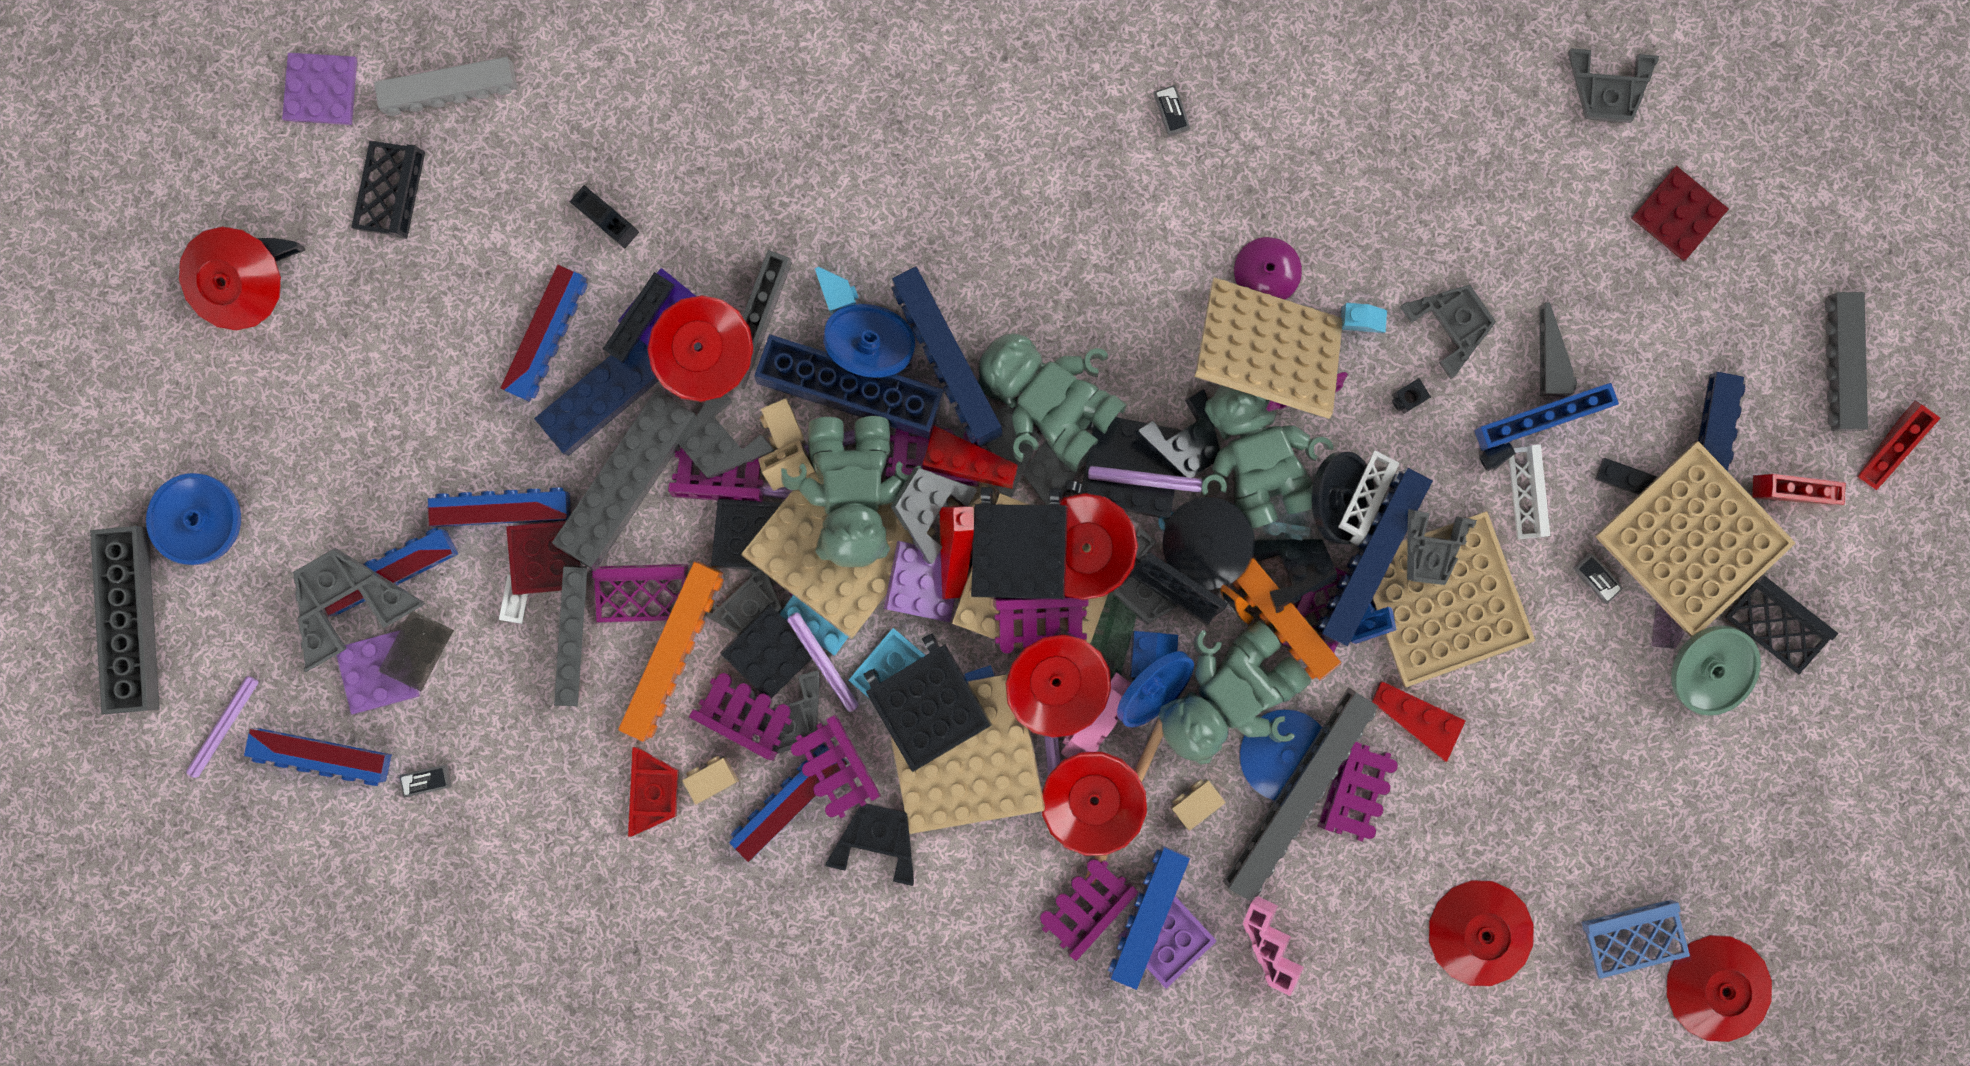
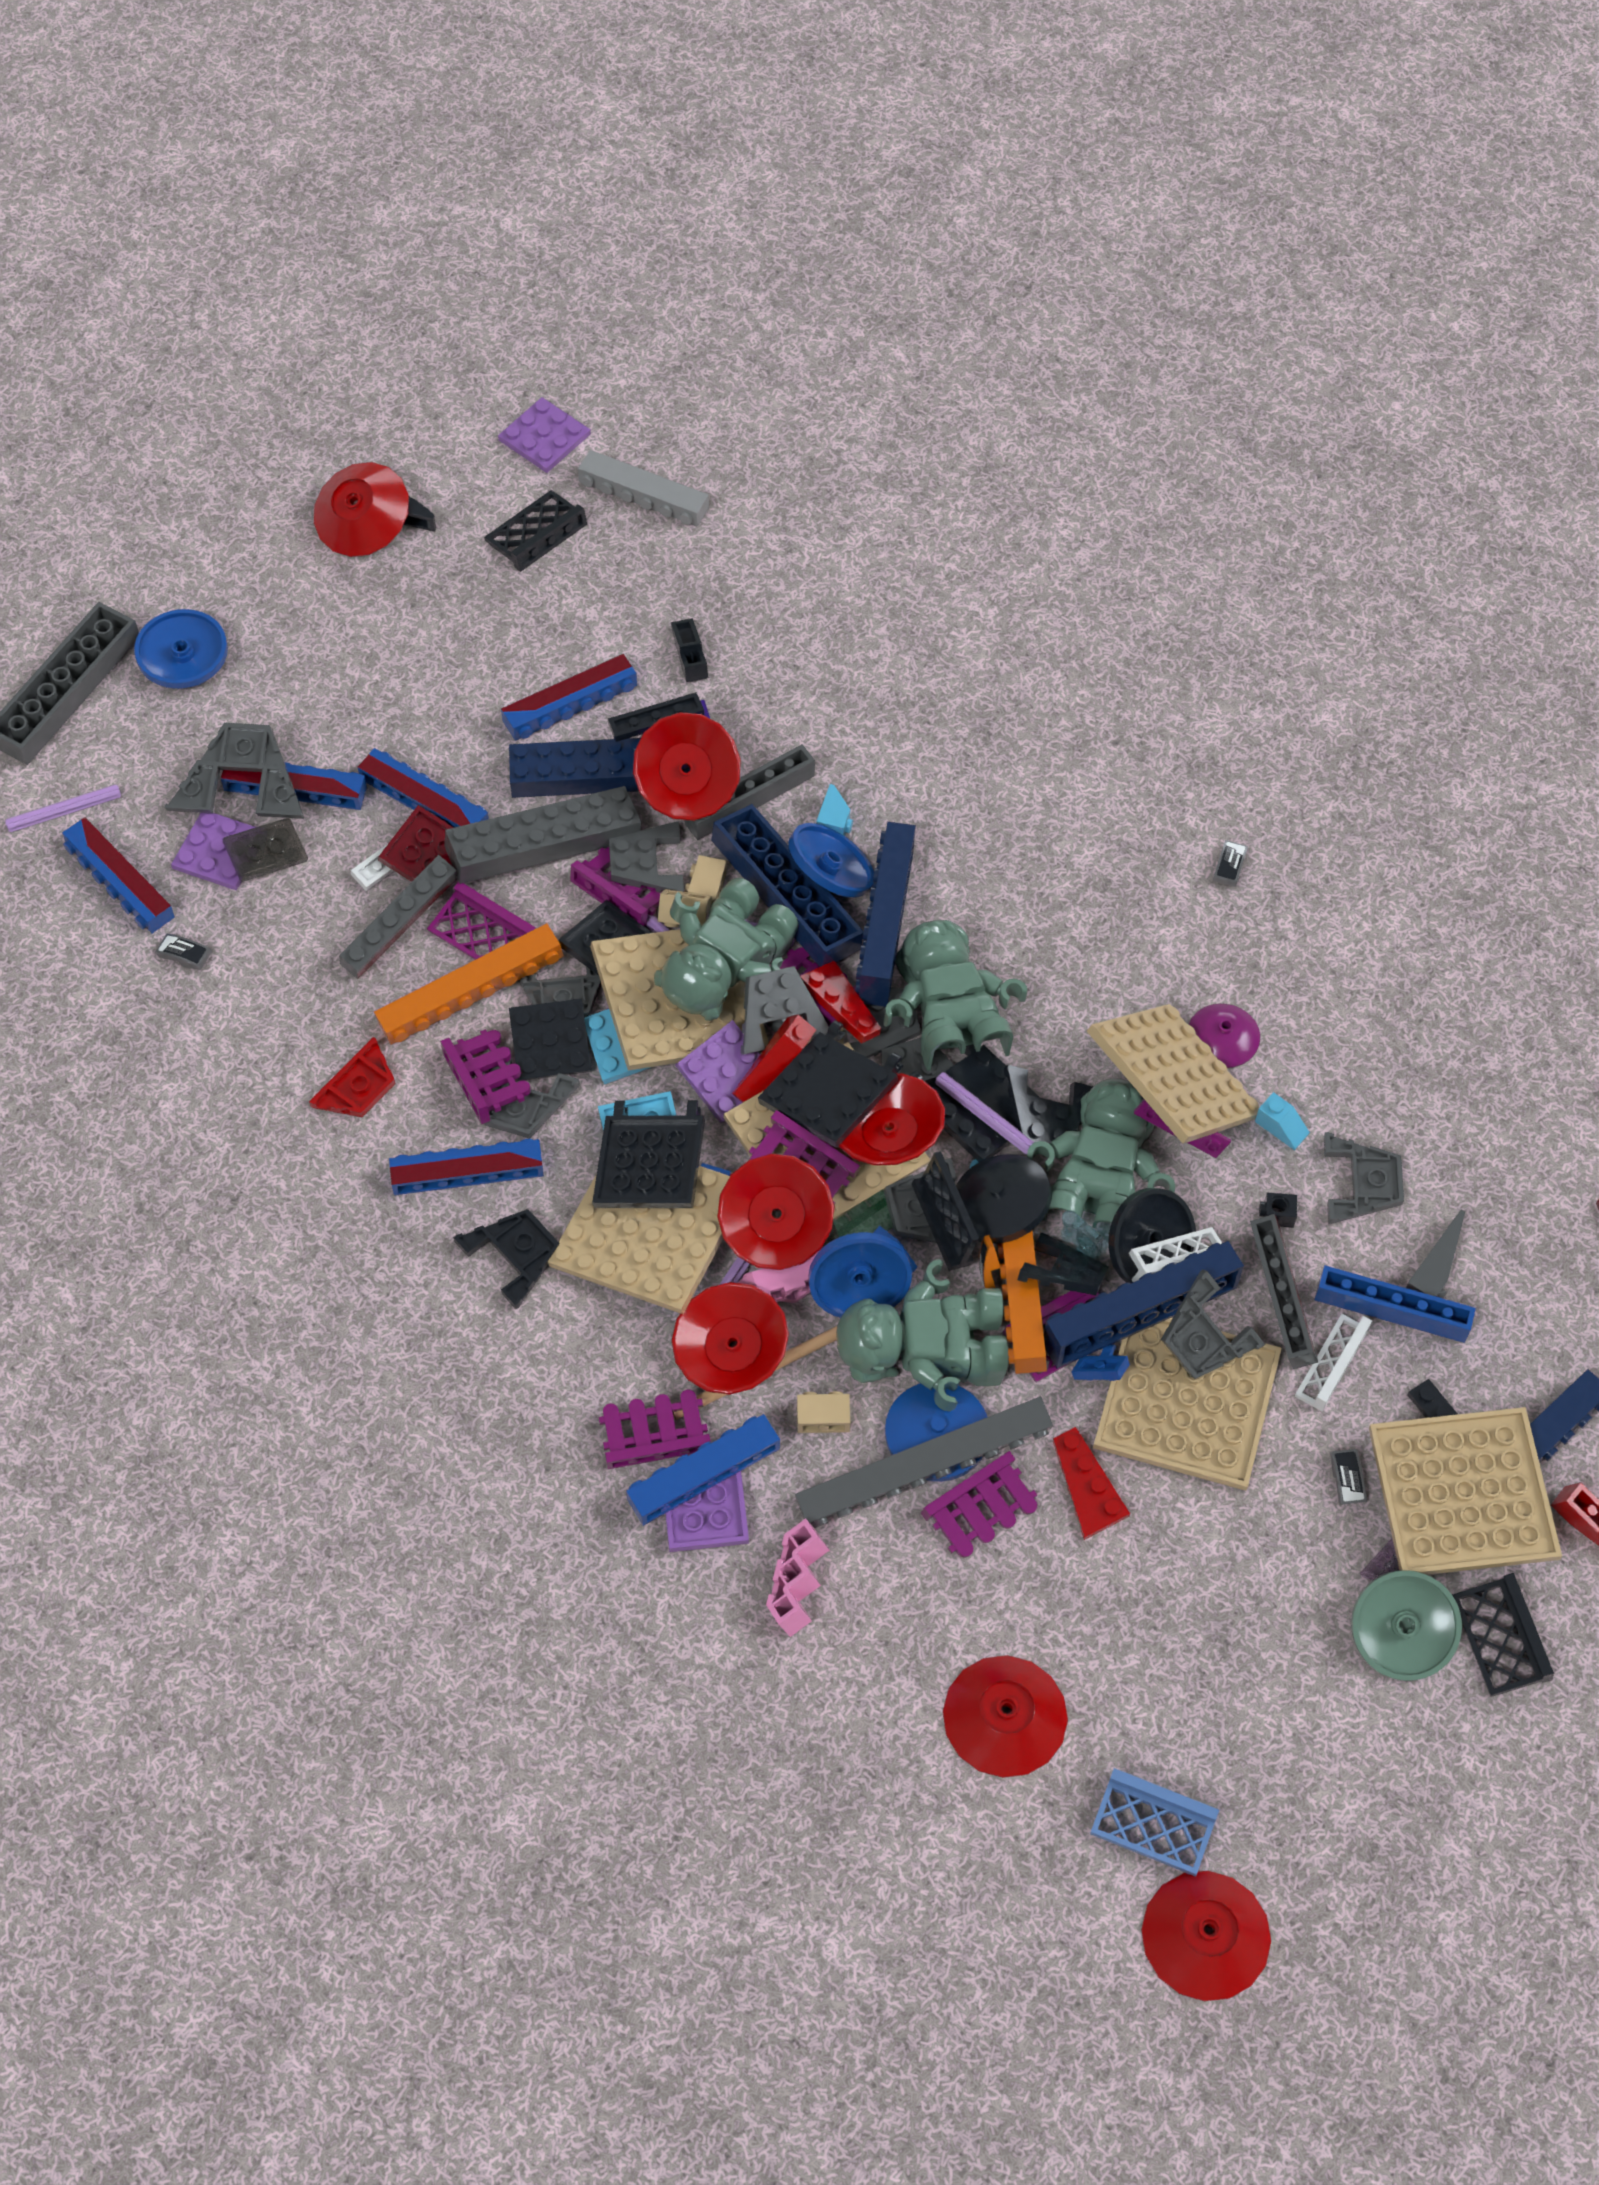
camera: 30 degrees right, 25 degrees down
(710, 780) = (415, 1105): tan brick -> none
(822, 662) = (588, 1077): lavender axle -> none
(845, 775) = (530, 1171): magenta fence -> none
(1461, 465) = (1284, 1292): none -> dark grey brick
(1496, 456) = (1324, 1309): black cone -> none

